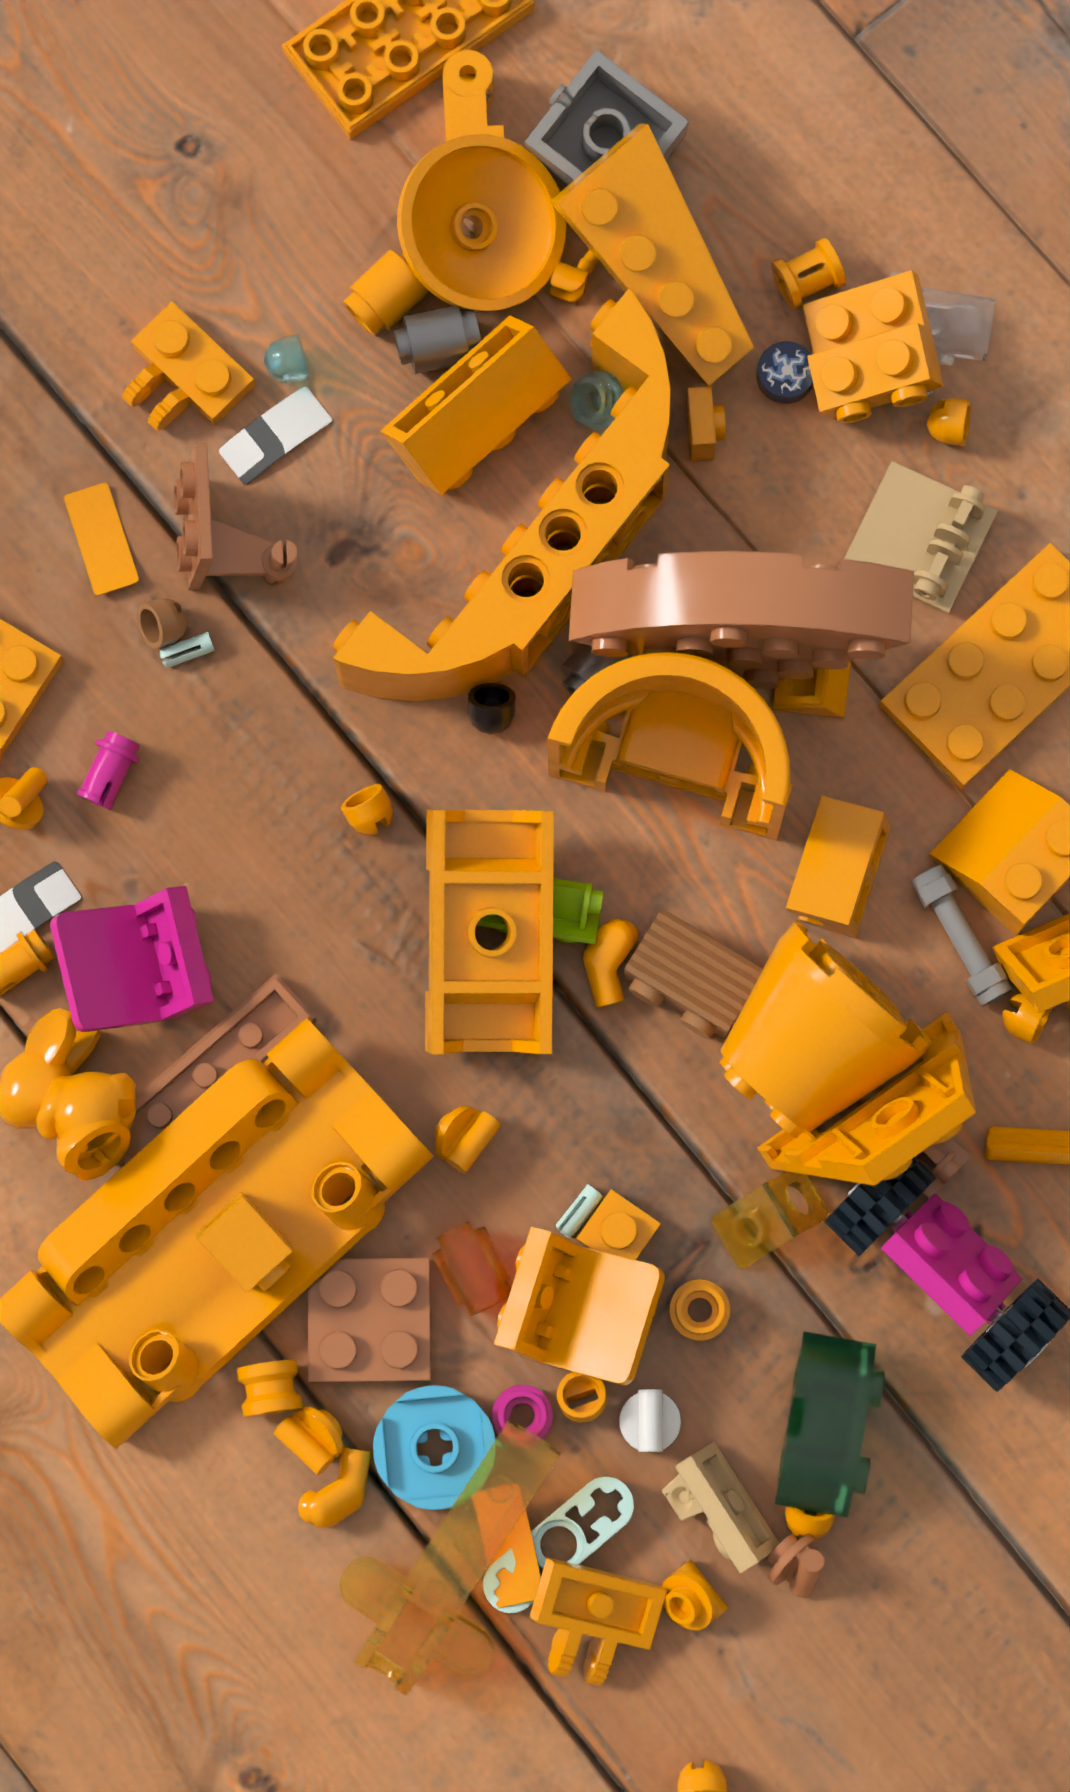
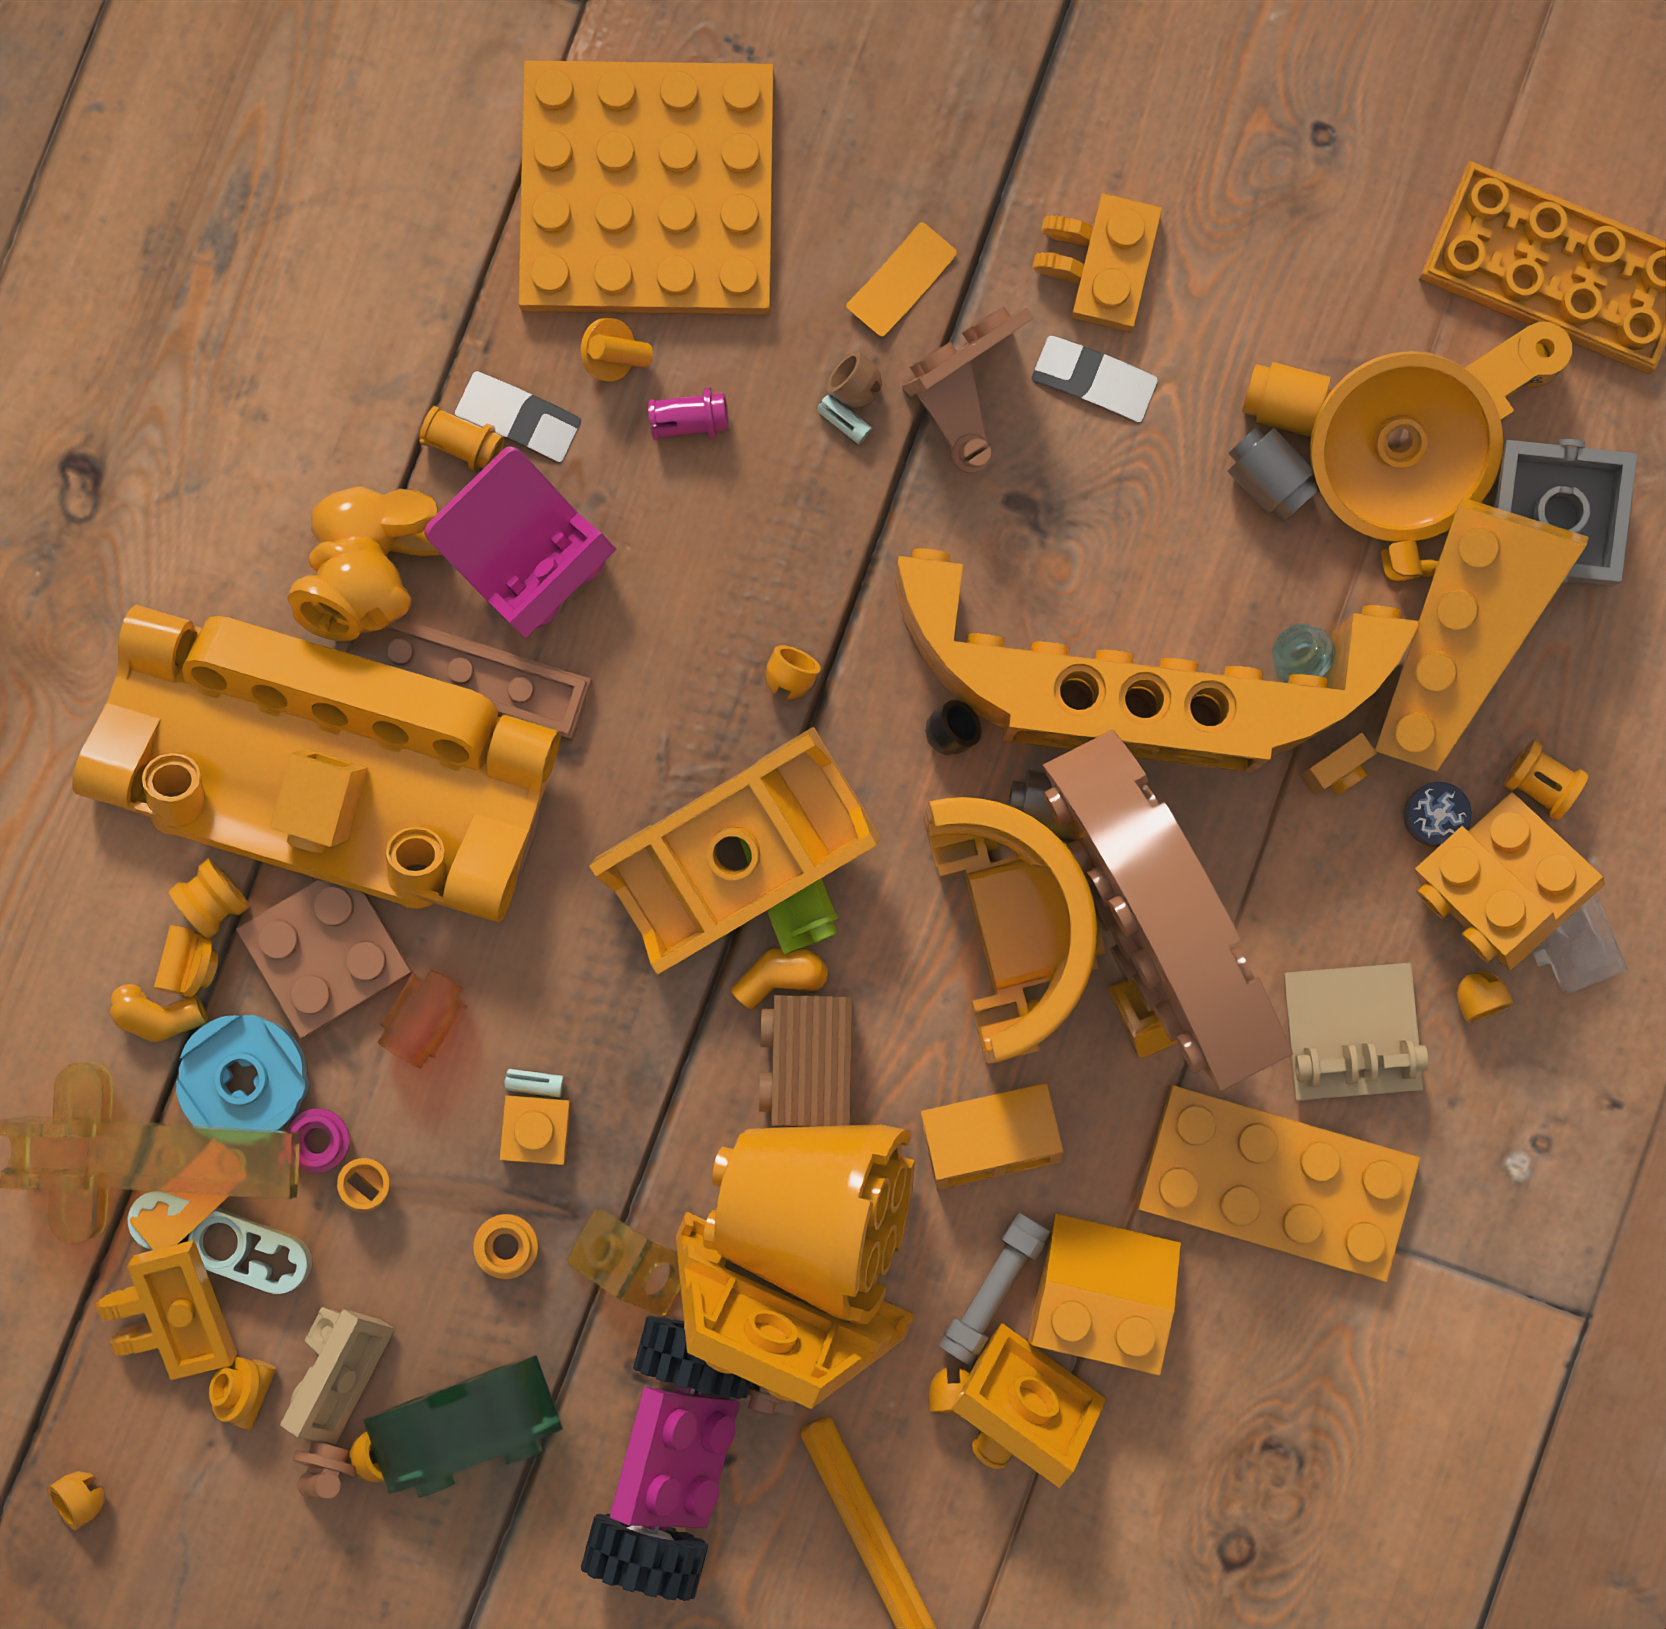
camera: 55 degrees right, 5 degrees up
(287, 360) = (1170, 347): clear light blue hinge -> none
(463, 1136) = (538, 938): light orange plate -> none
(476, 405) = (1229, 546): light orange brick -> none
(579, 1308) = (438, 1137): light orange bracket -> none
(650, 1421) = (377, 1260): white plate -> none

